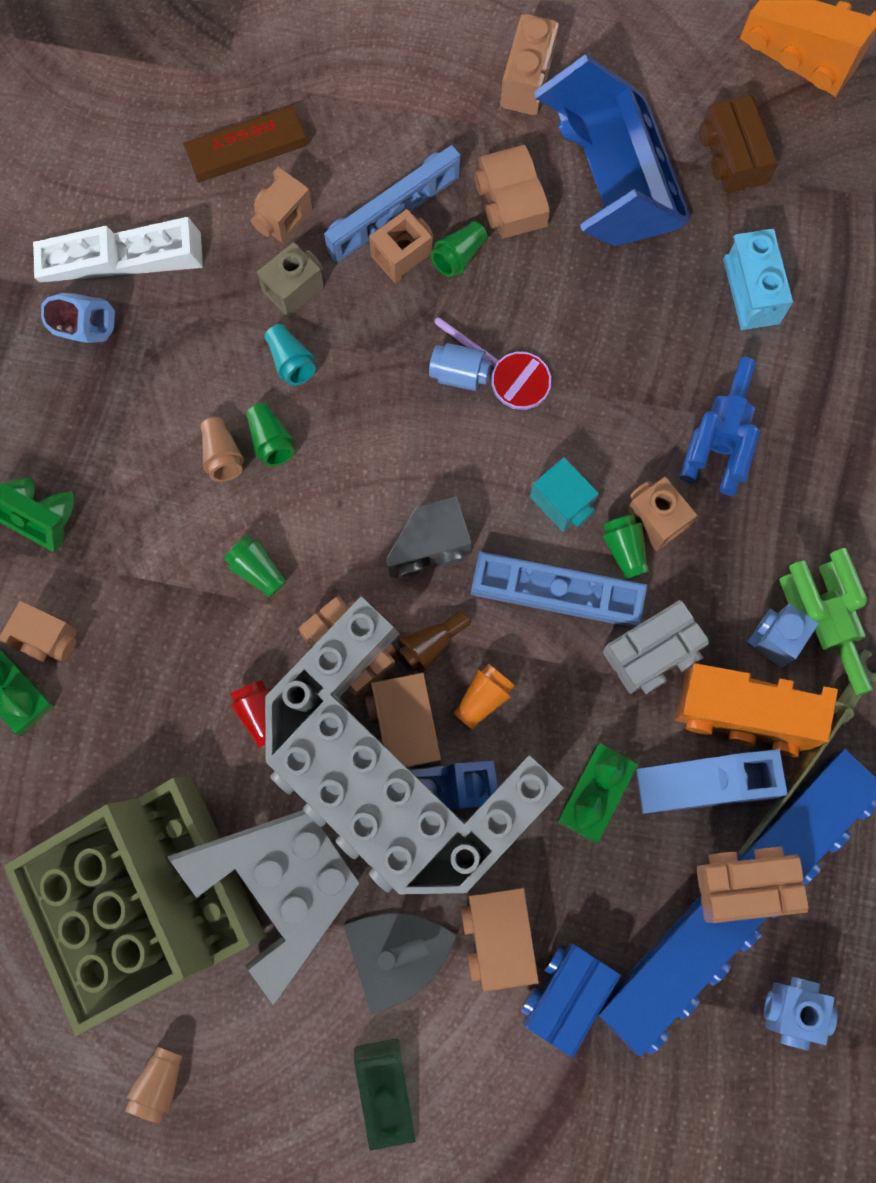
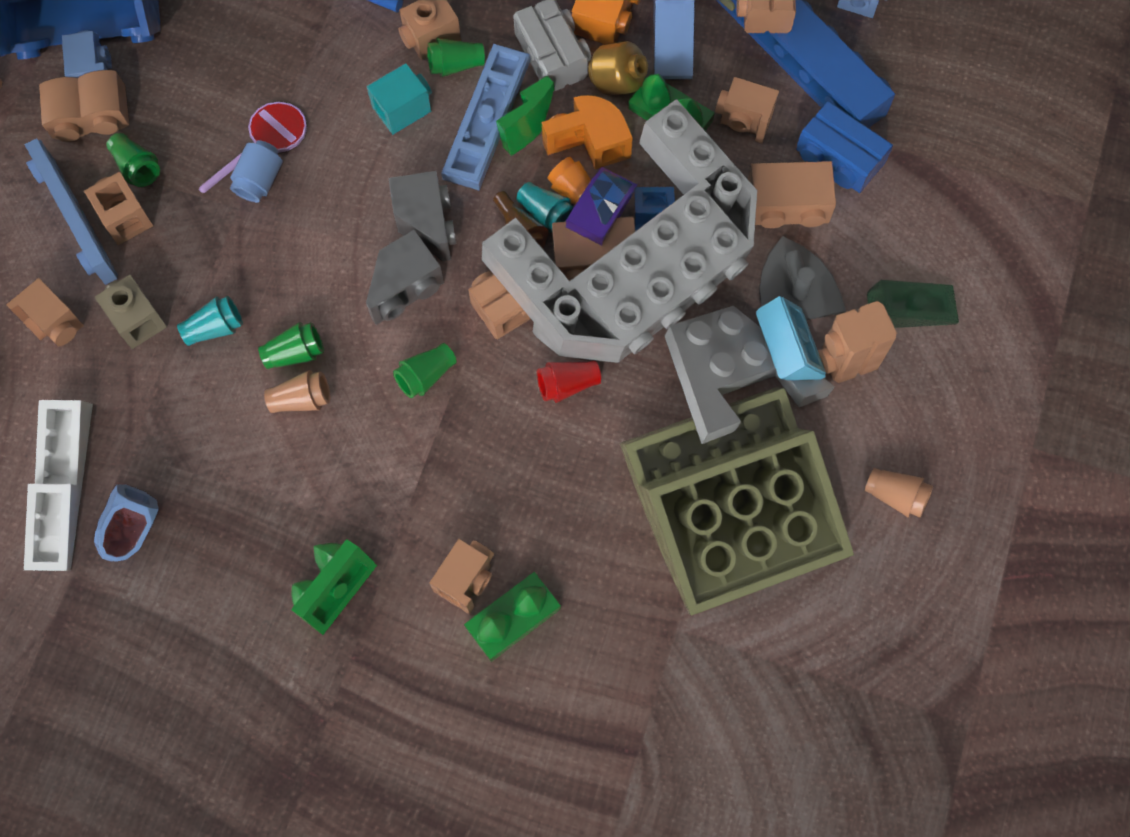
camera: 80 degrees left, 5 degrees down
(310, 1025) = (857, 342): none -> nougat brick
(316, 950) = (790, 341): none -> medium azure slope
(355, 526) = (402, 276): none -> flat silver slope
(451, 723) = (600, 205): none -> slope
(453, 668) = (544, 205): none -> teal cone
(556, 636) = (525, 122): none -> green slope
(561, 708) = (594, 124): none -> orange brick
(565, 181) = (84, 54): none -> medium blue brick
(606, 879) = (747, 107): none -> nougat brick
(632, 725) = (618, 68): none -> pearl gold head

